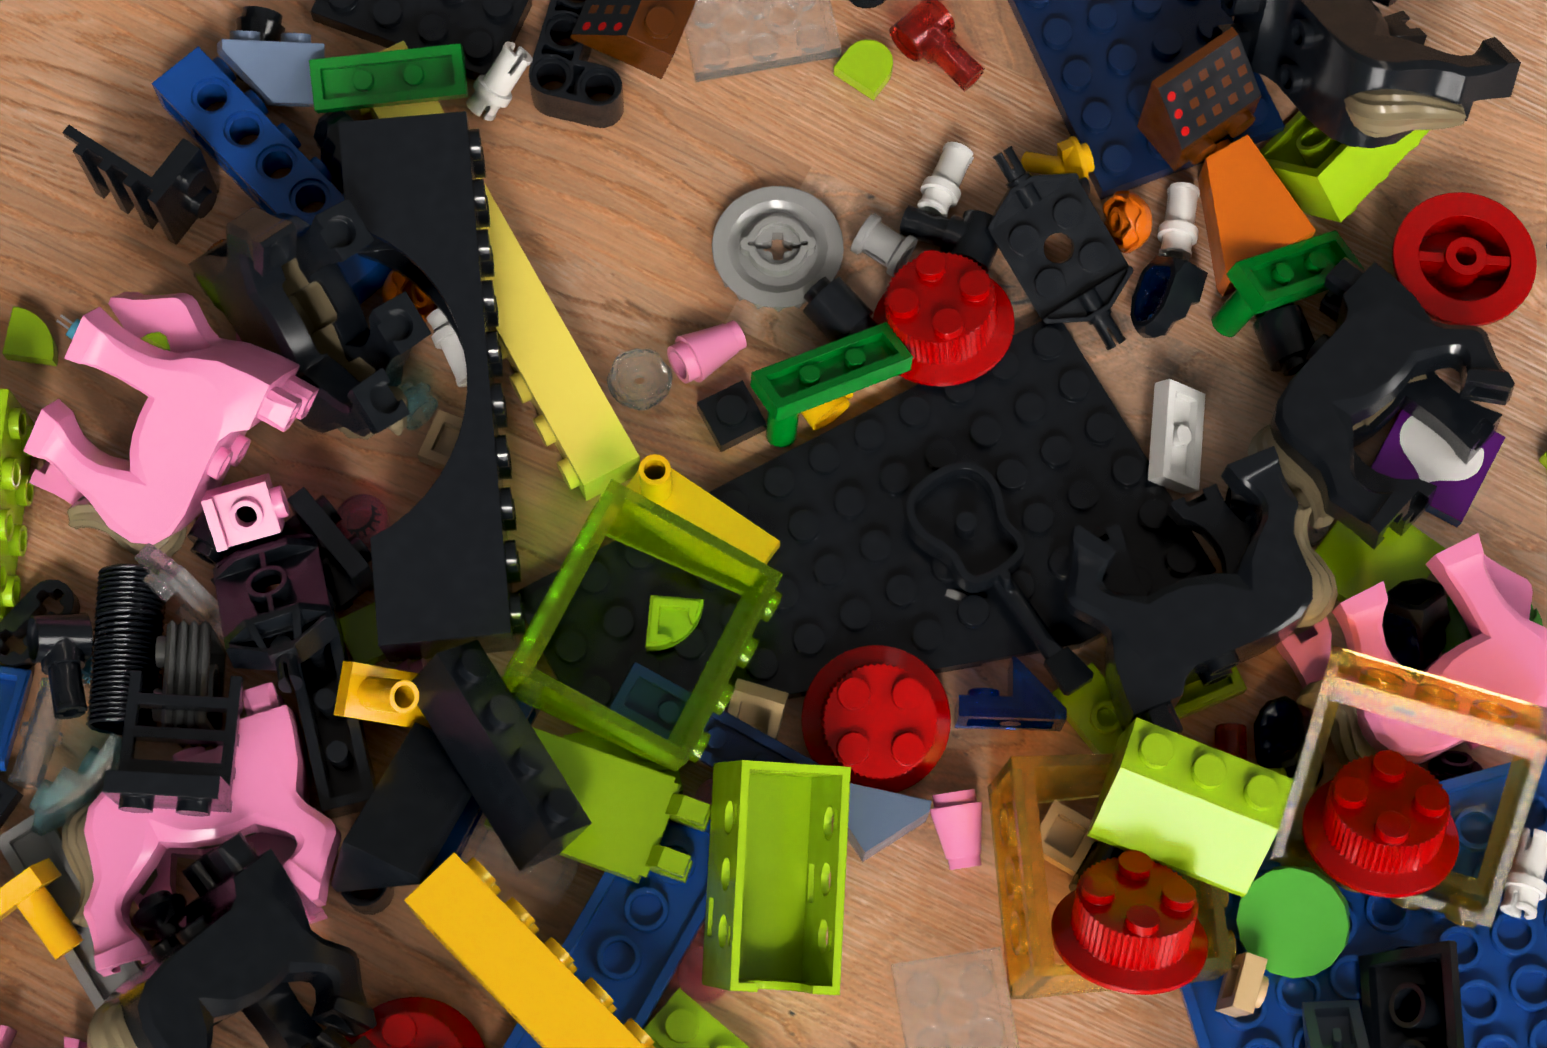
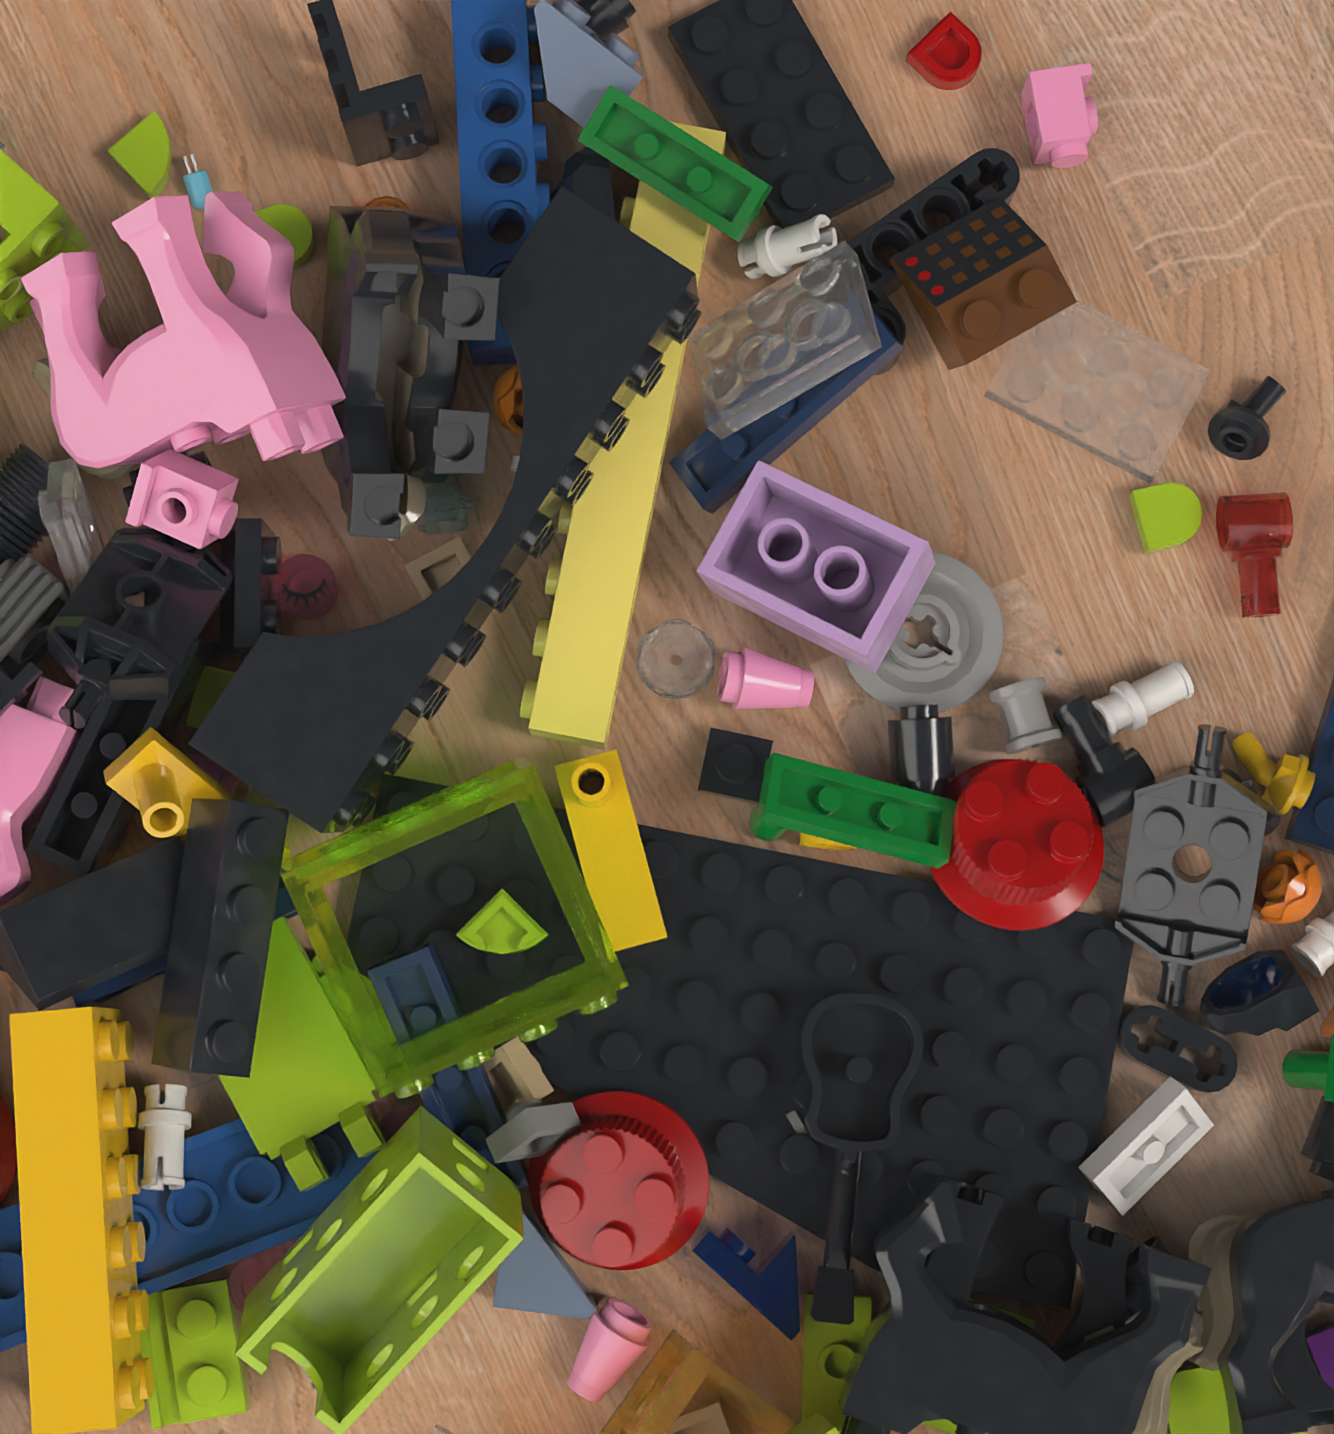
camera: 40 degrees right, 10 degrees up
(546, 131) = (783, 340): none -> clear plate
(559, 919) = (164, 1136): none -> white pin
(579, 171) = (720, 468): none -> dark blue plate
(681, 249) = (817, 566): none -> lavender brick
(797, 723) = (532, 1130): none -> light grey plate
(1141, 358) = (1182, 1034): none -> black beam

